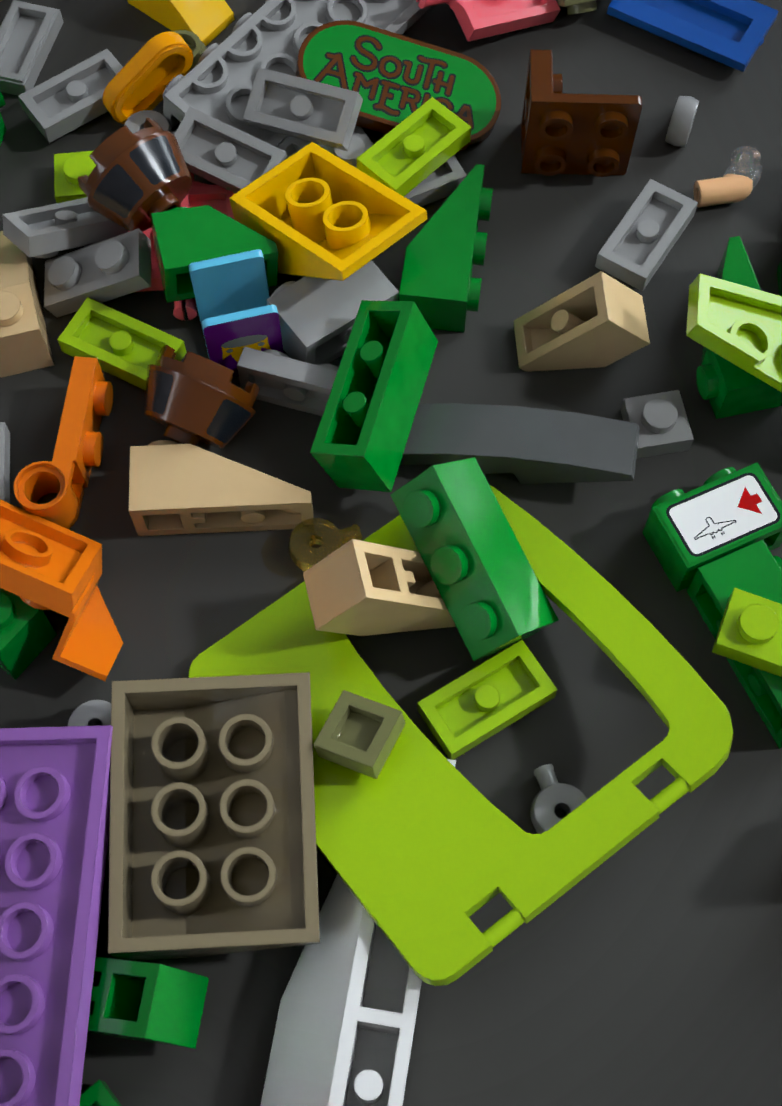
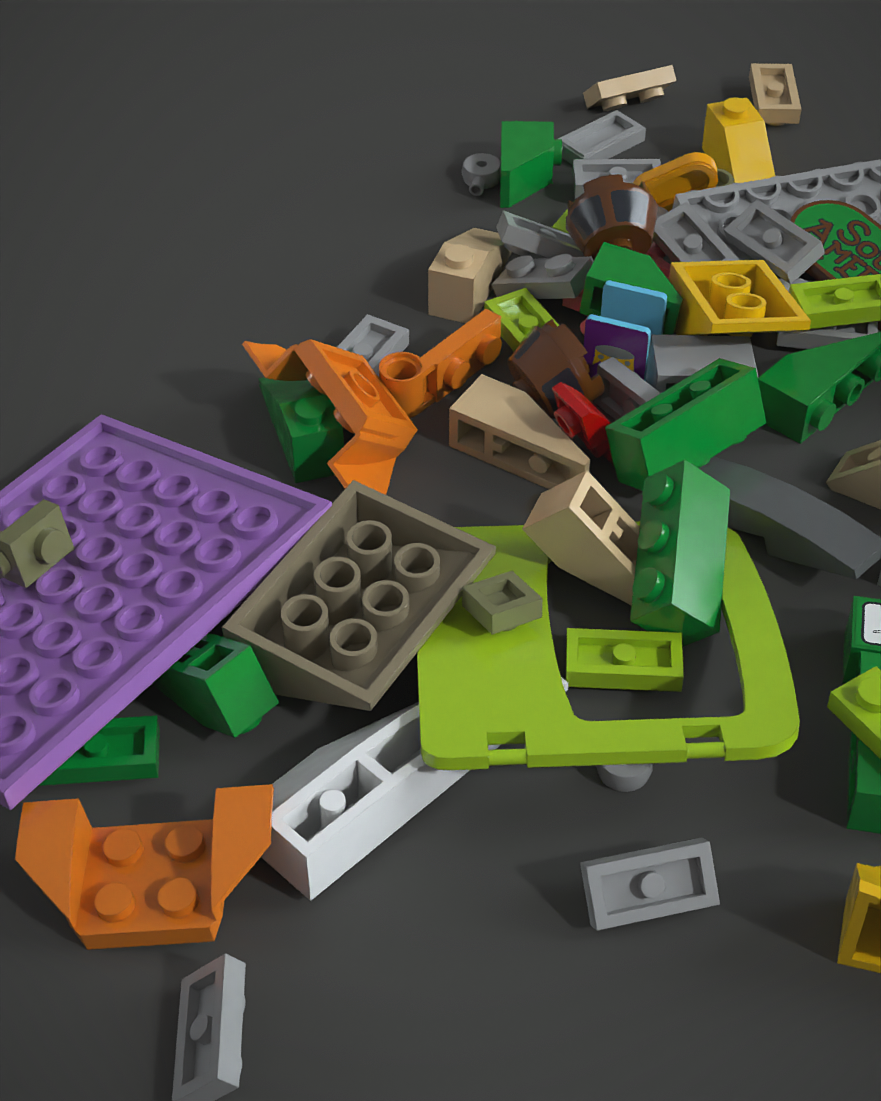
camera: 35 degrees right, 20 degrees down
(274, 447) = (581, 418): none -> red slope
(678, 939) = (650, 883): none -> light grey plate

